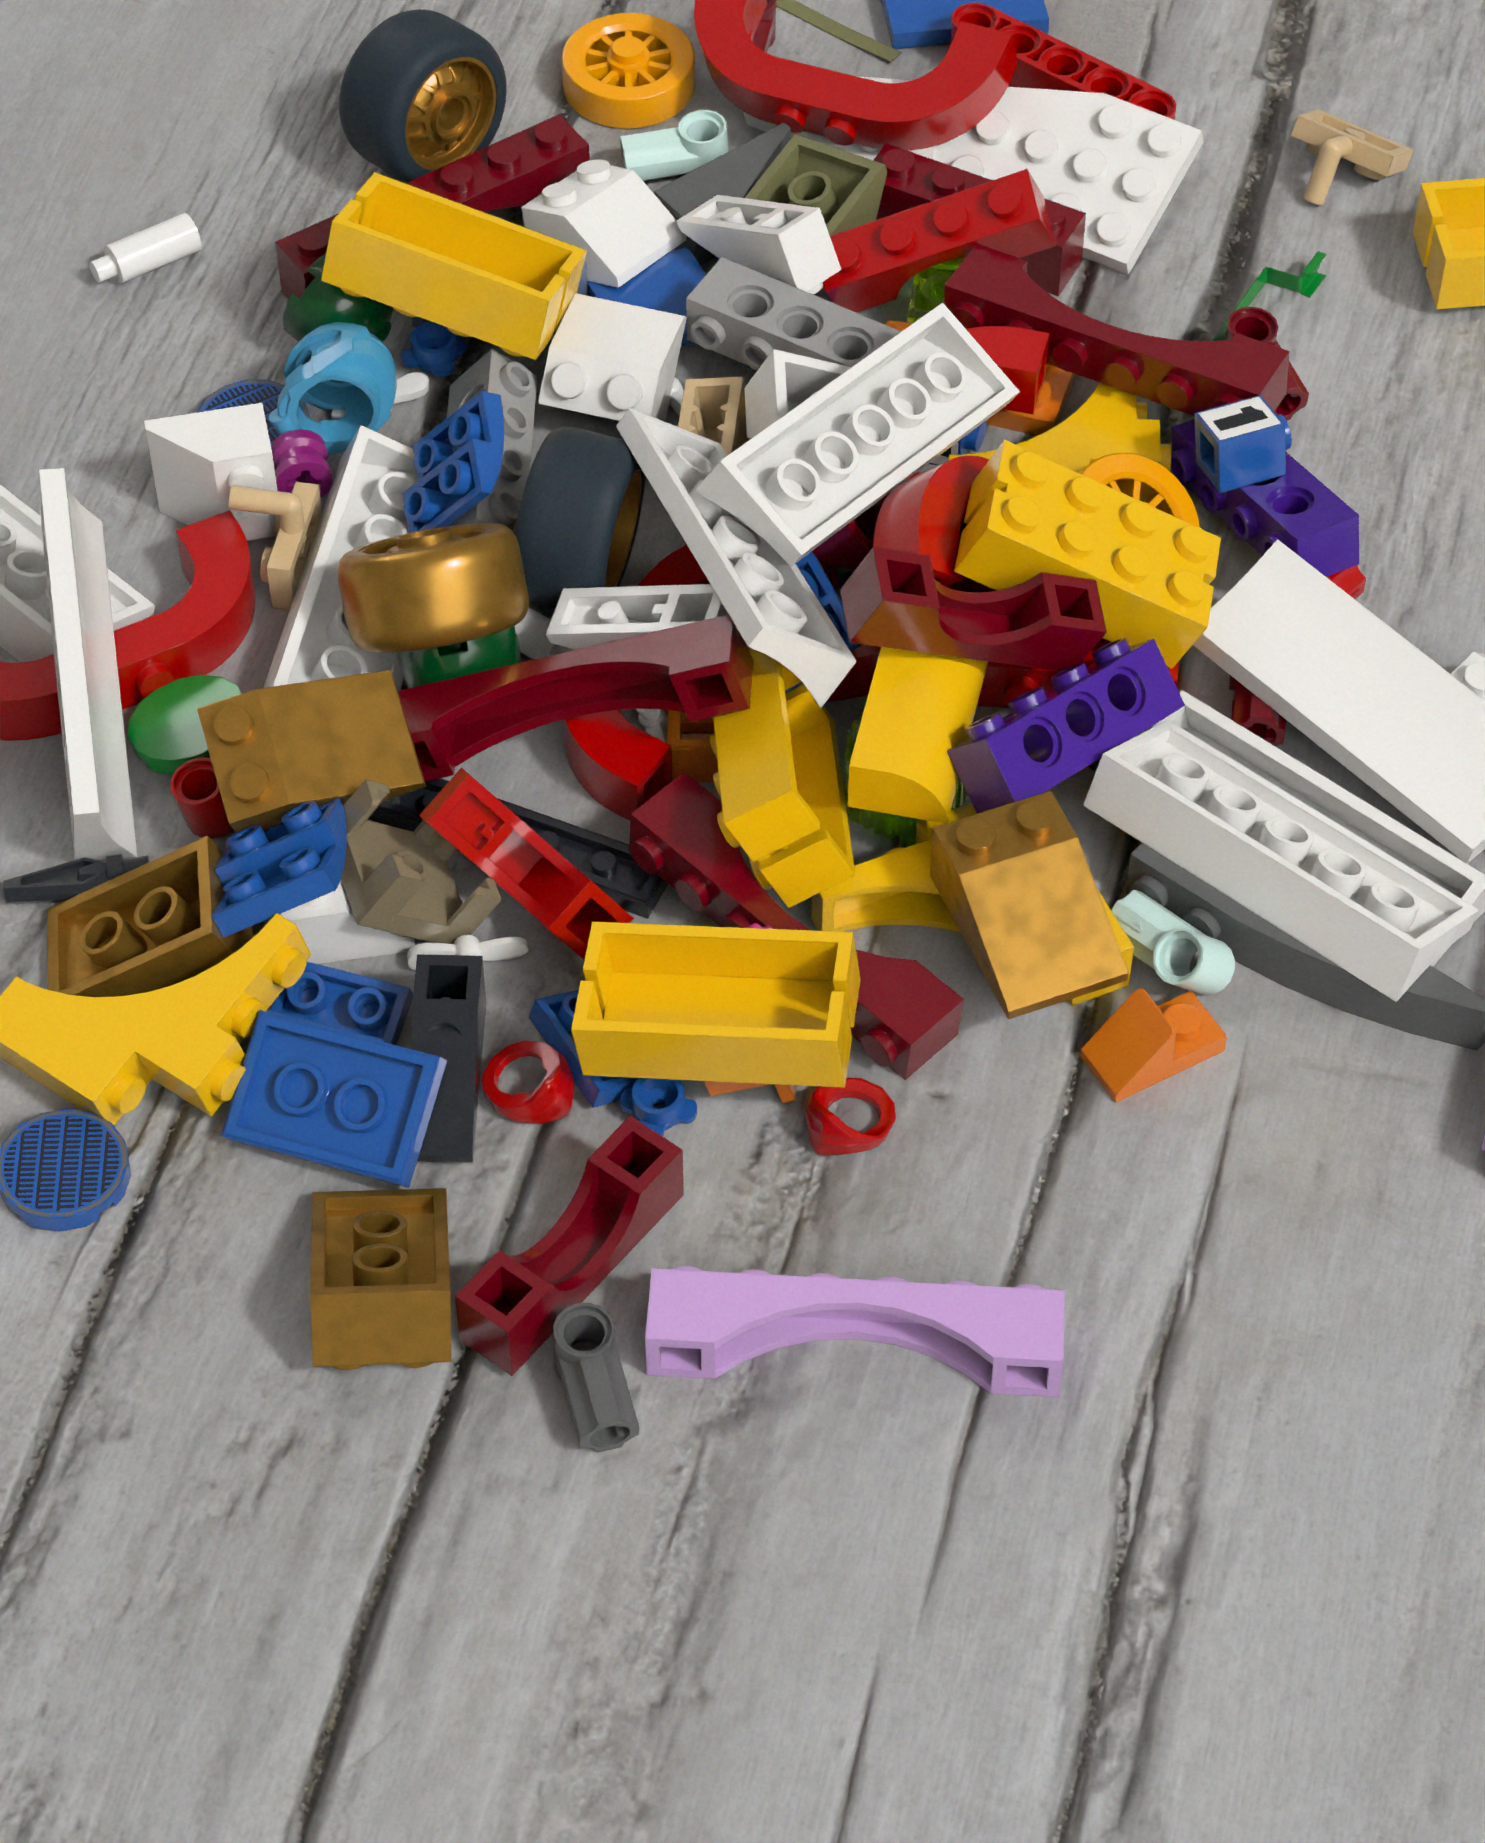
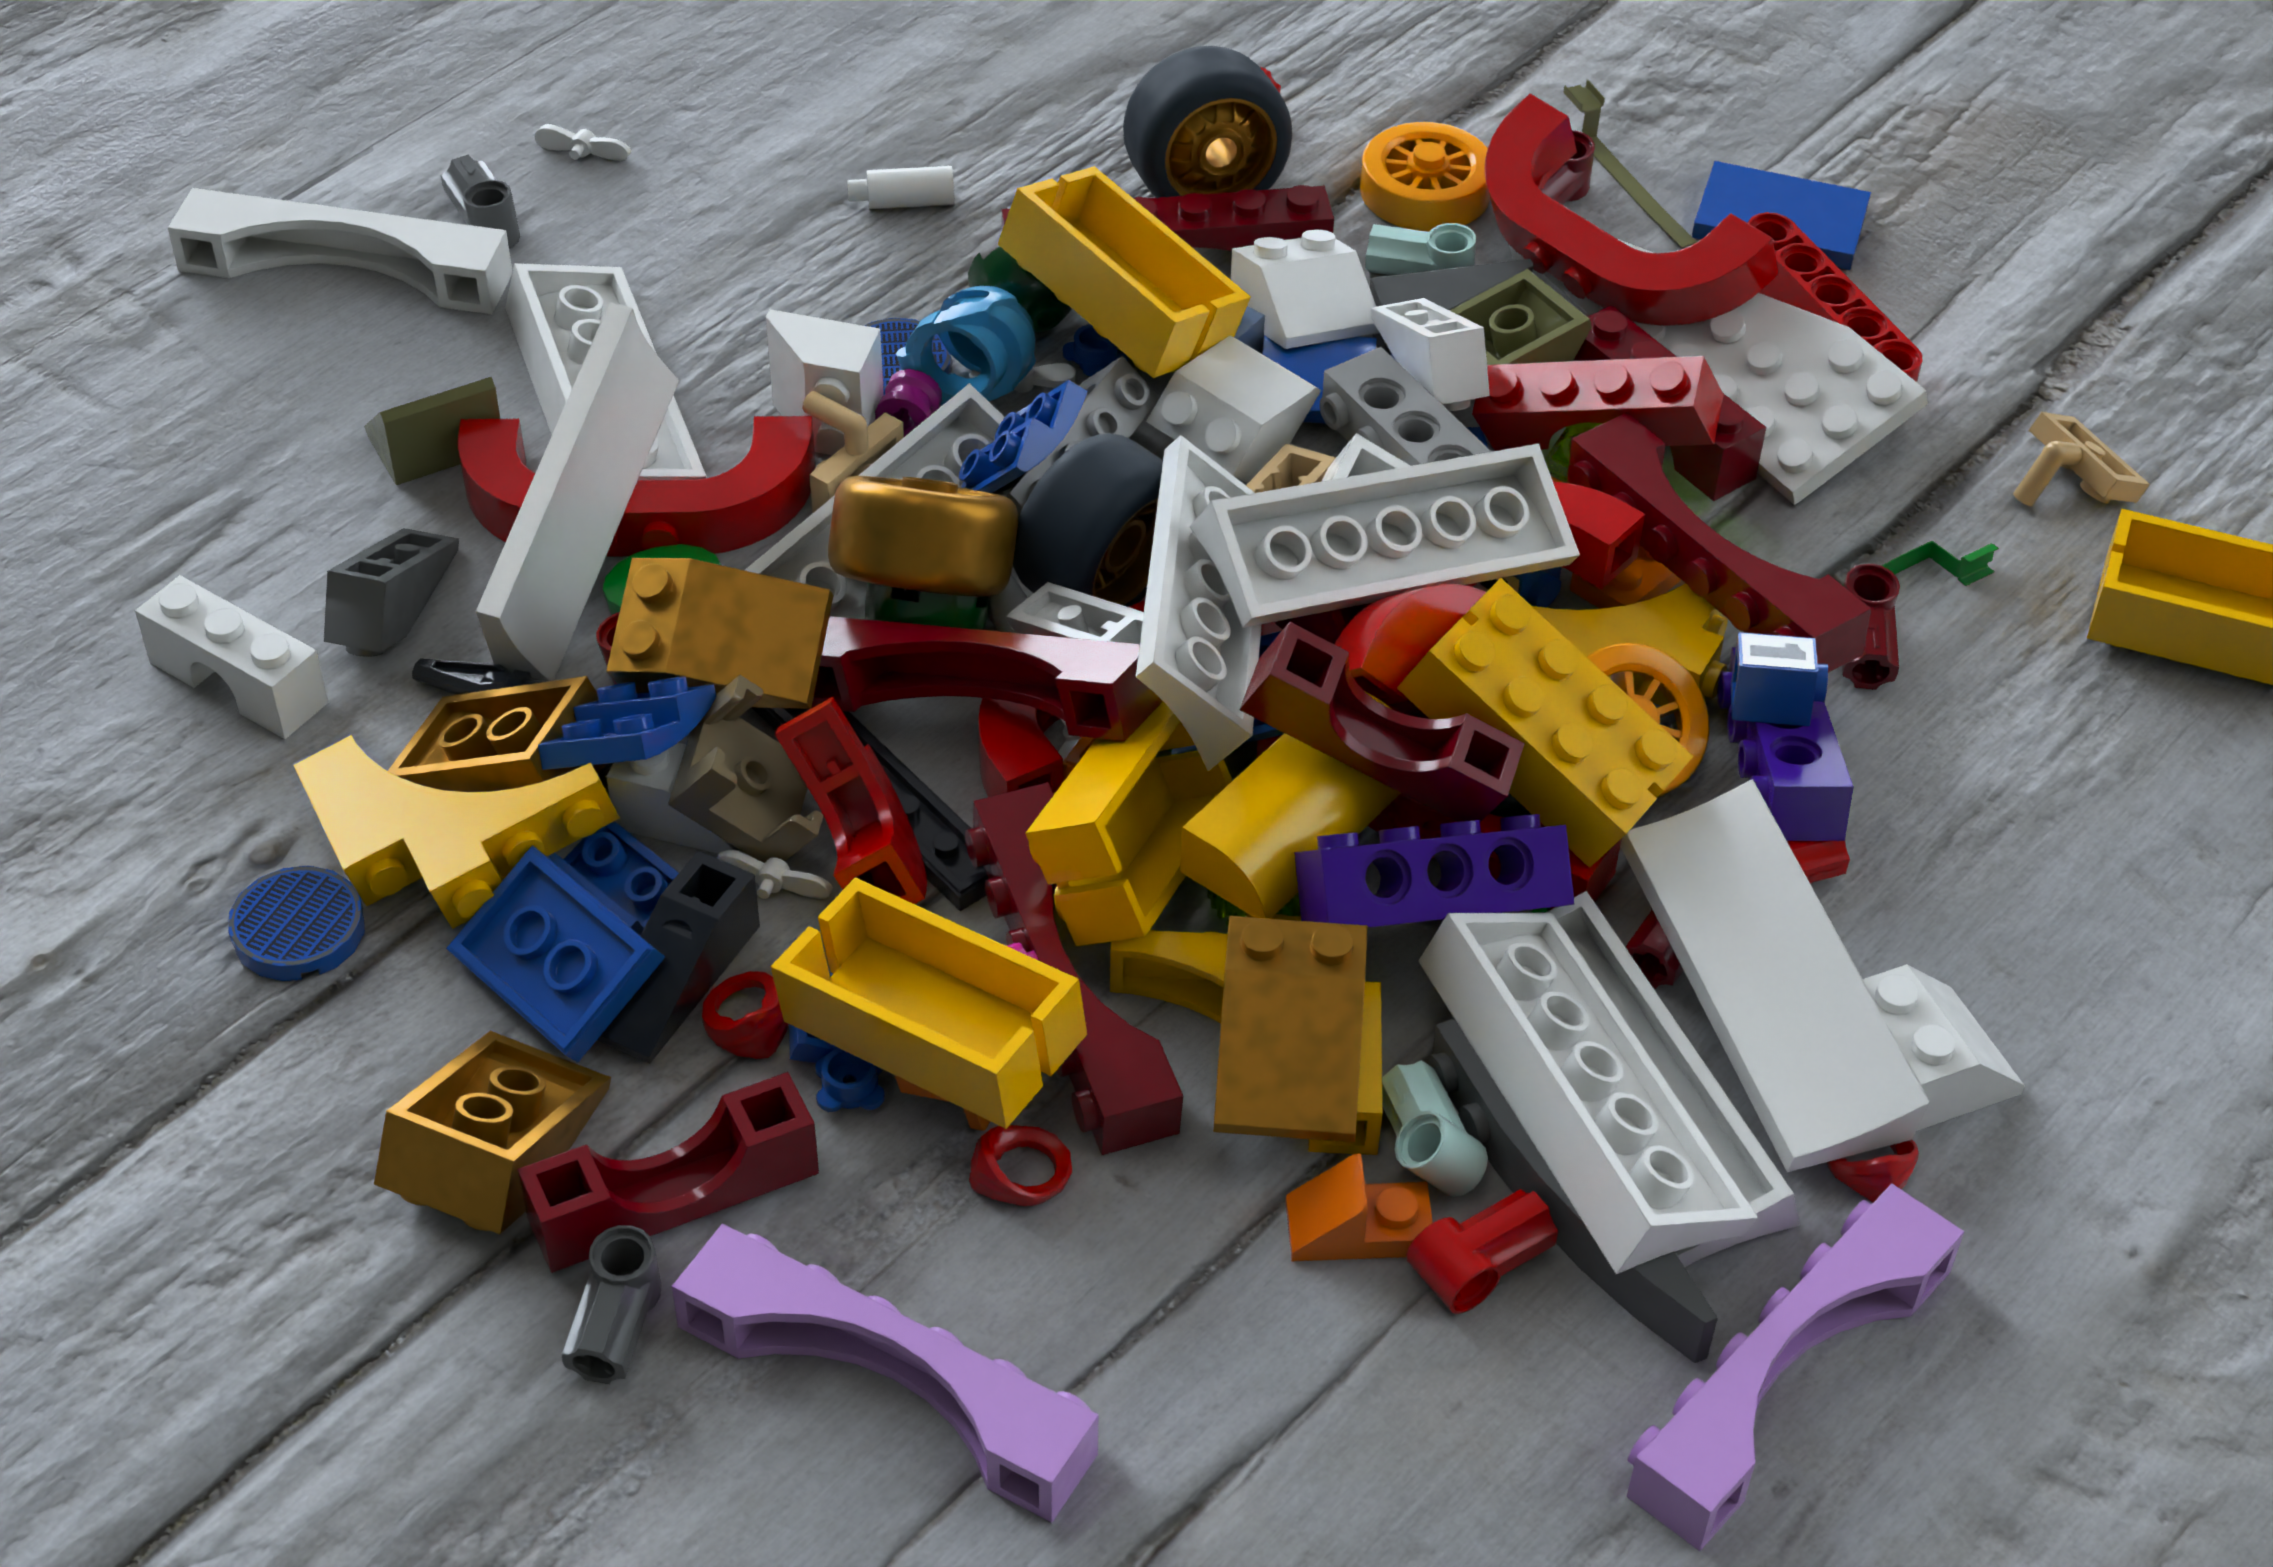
camera: 25 degrees right, 5 degrees down
(1265, 1035) = (1469, 1257): none -> red piece

